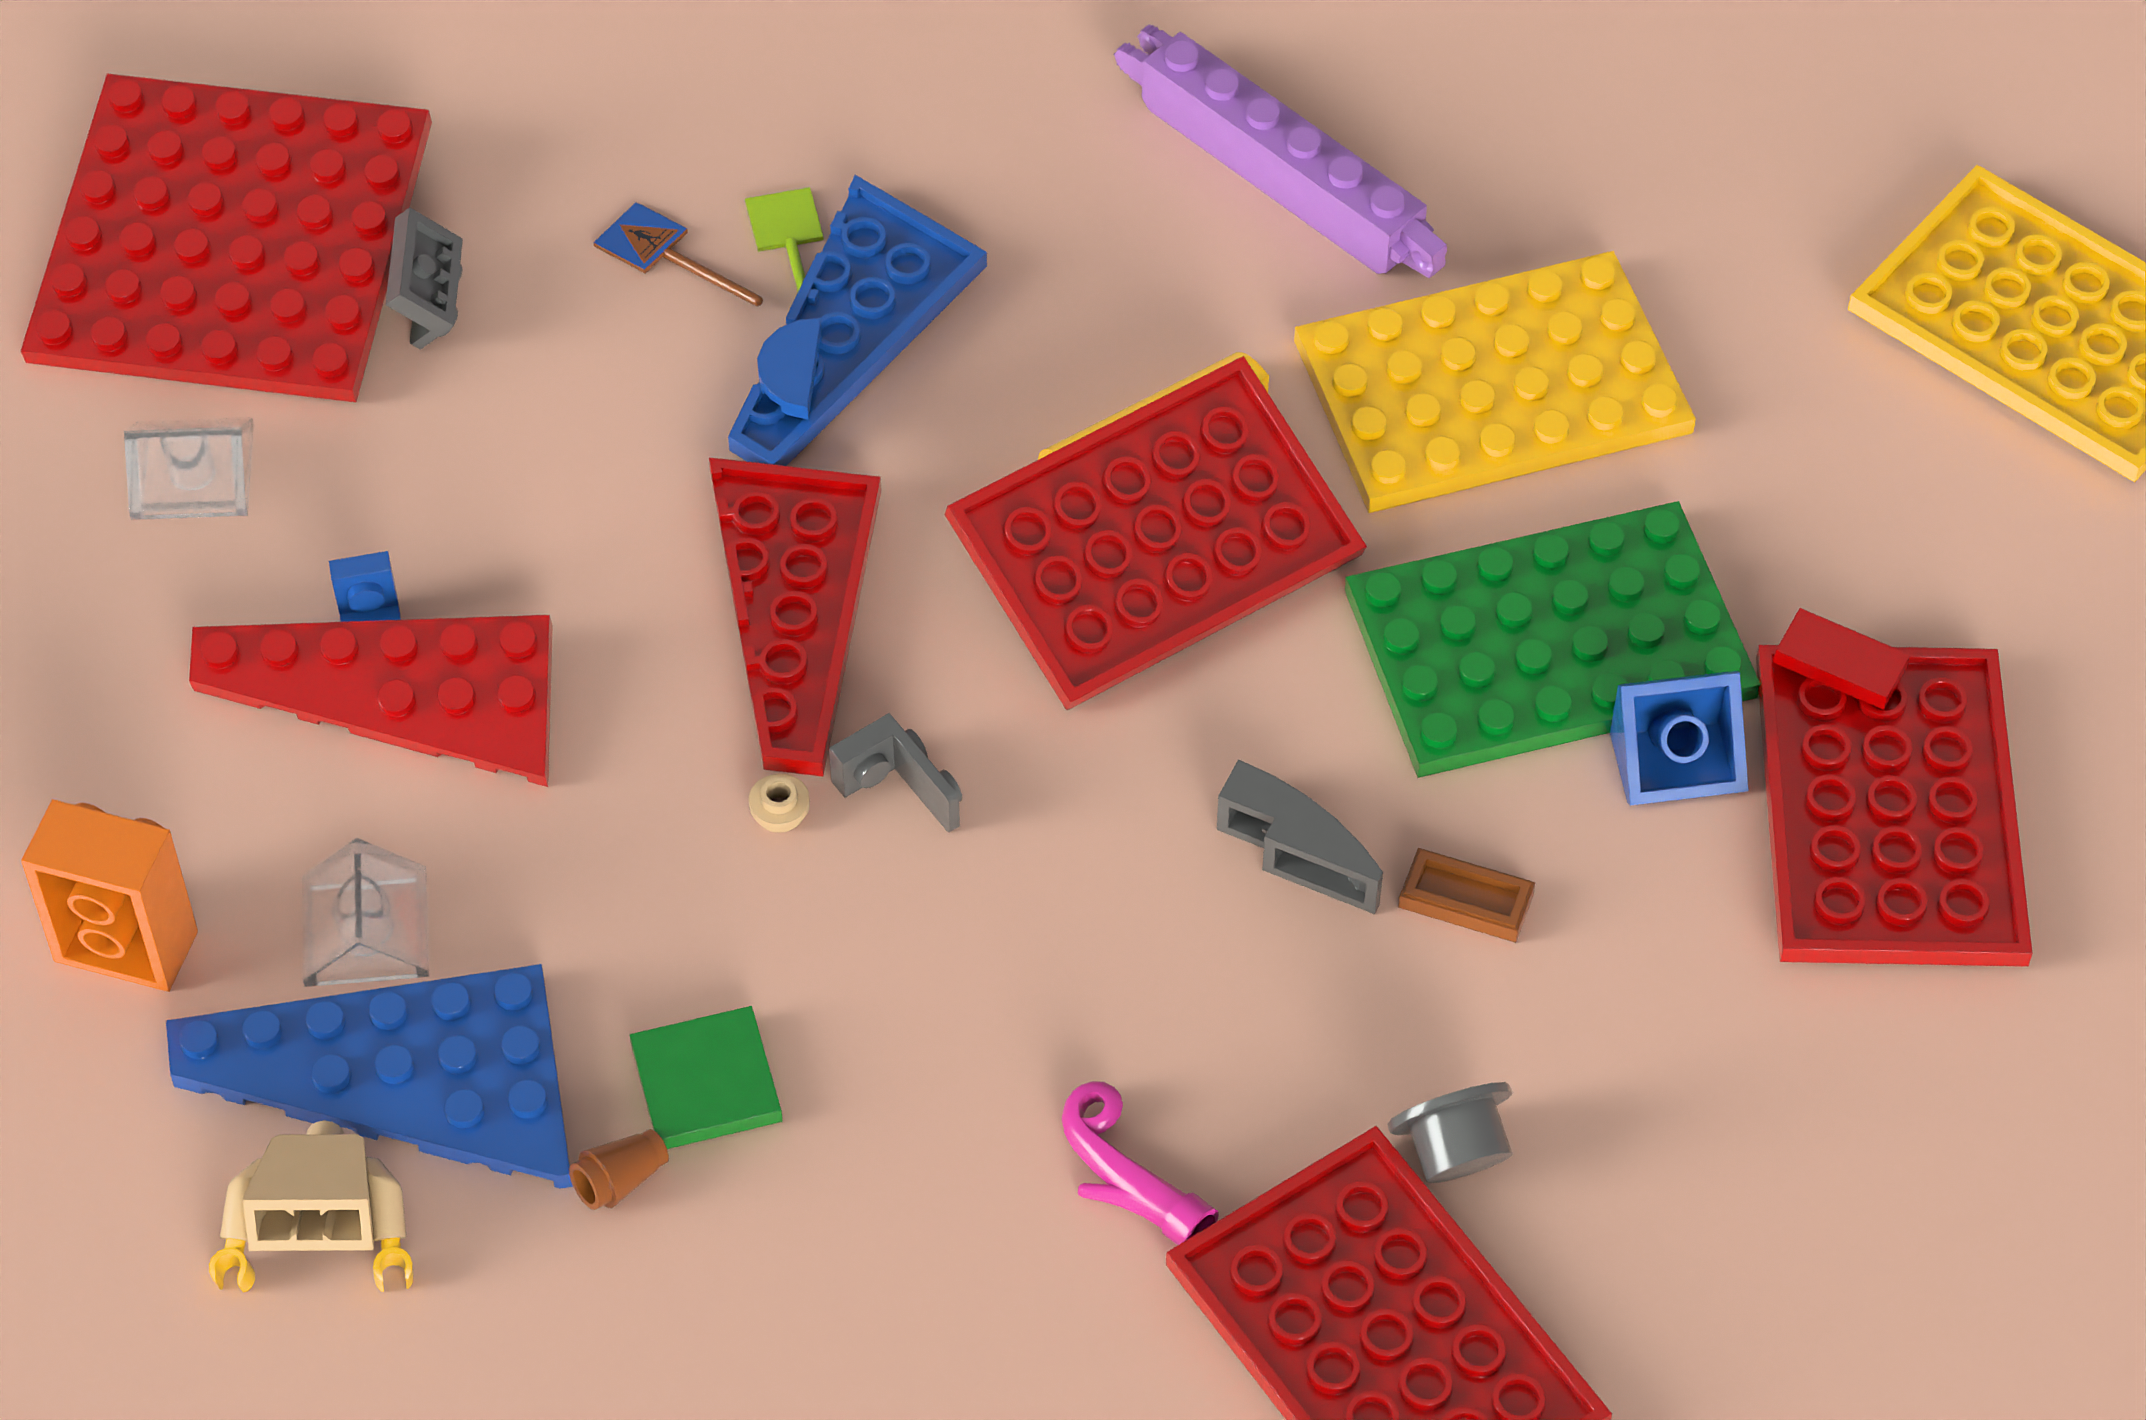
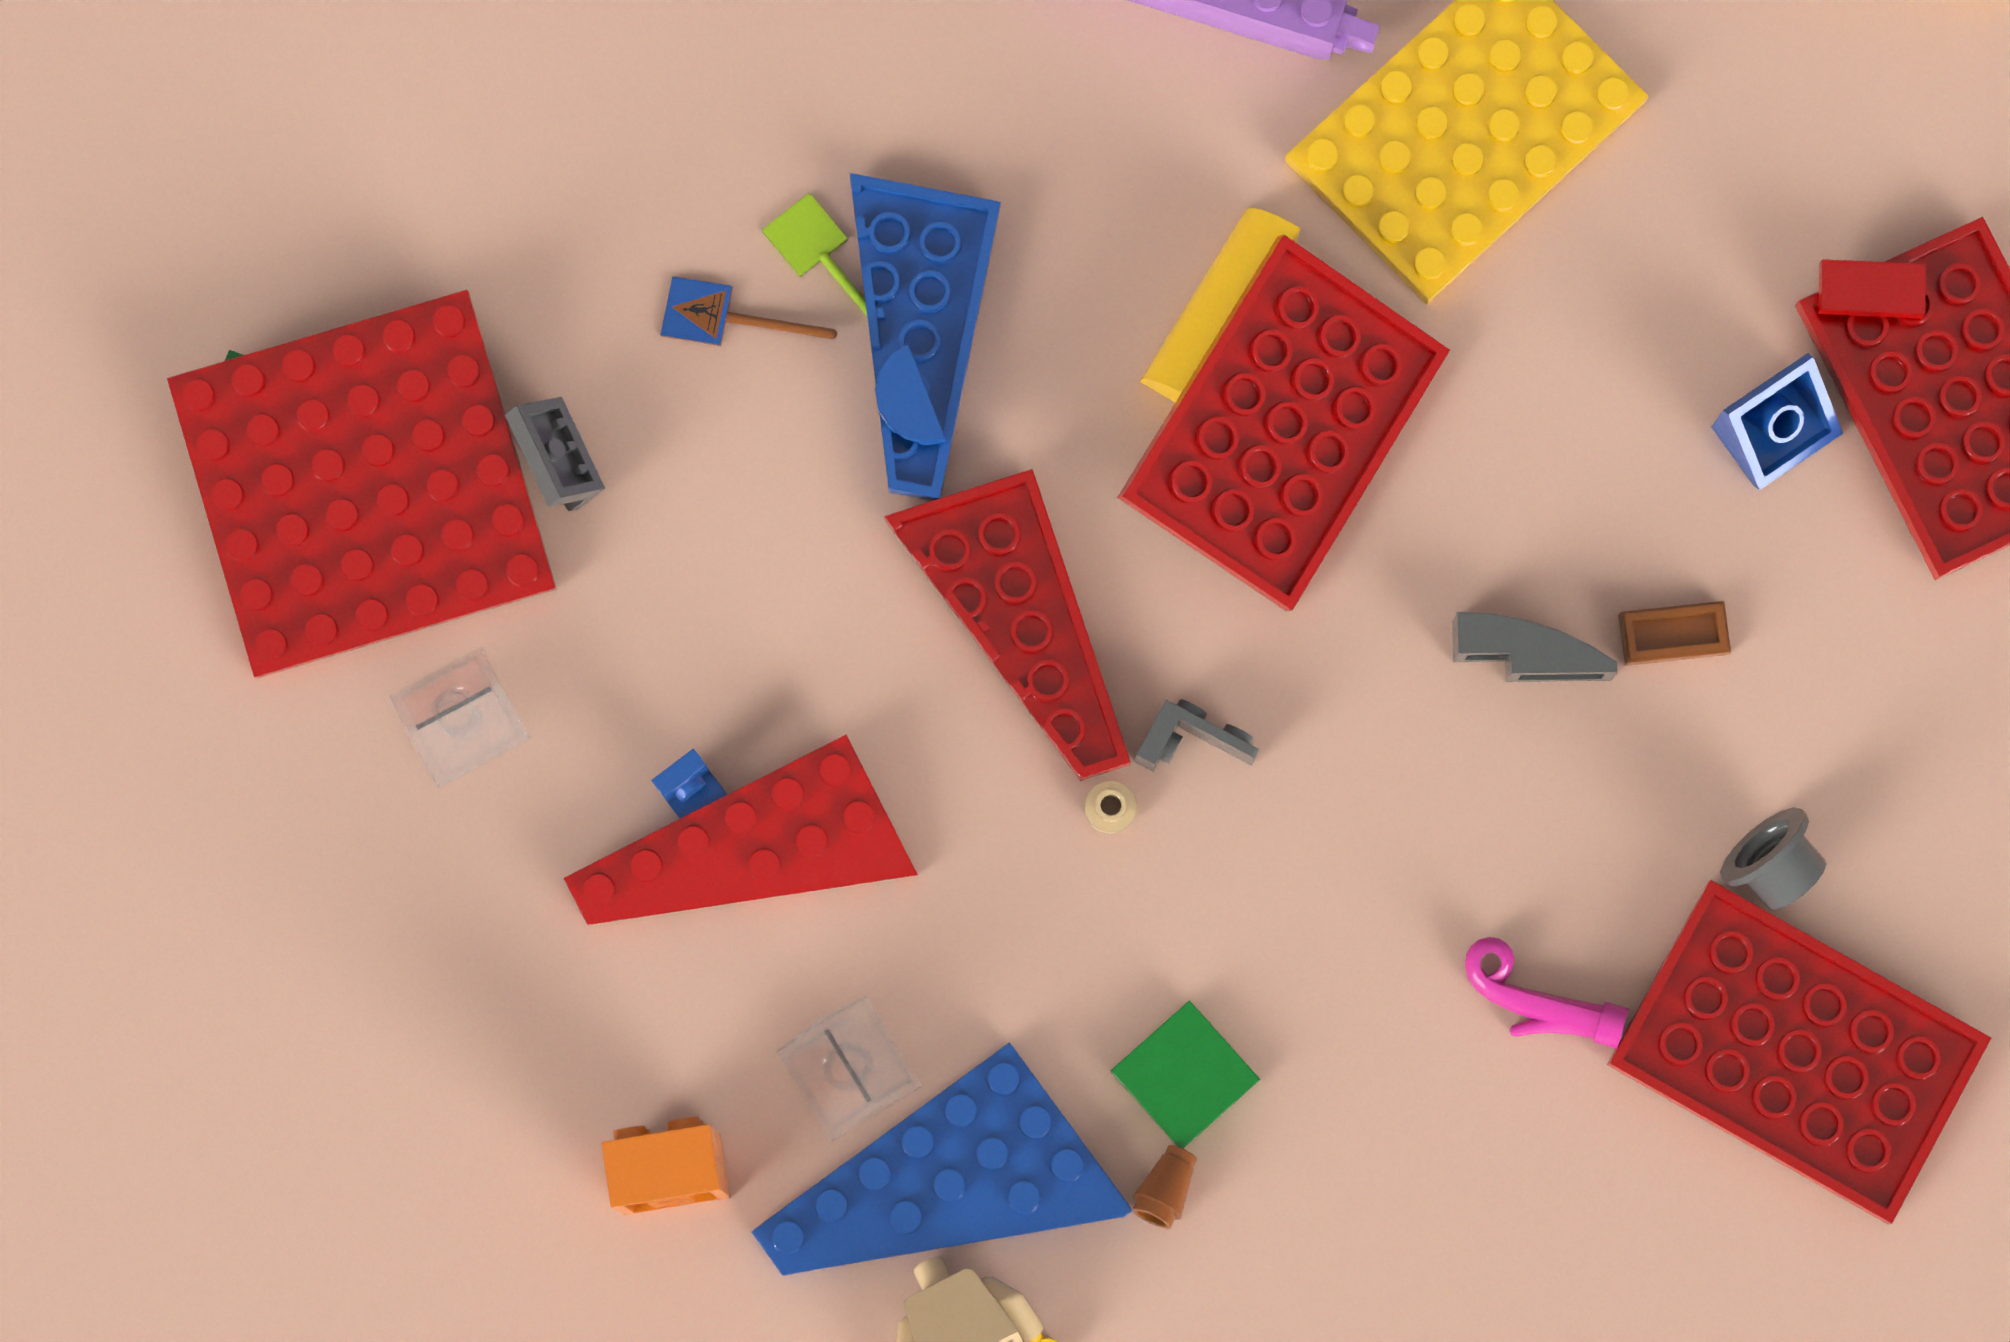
camera: 25 degrees left, 25 degrees up
(1537, 632) = (1627, 361): green plate -> none

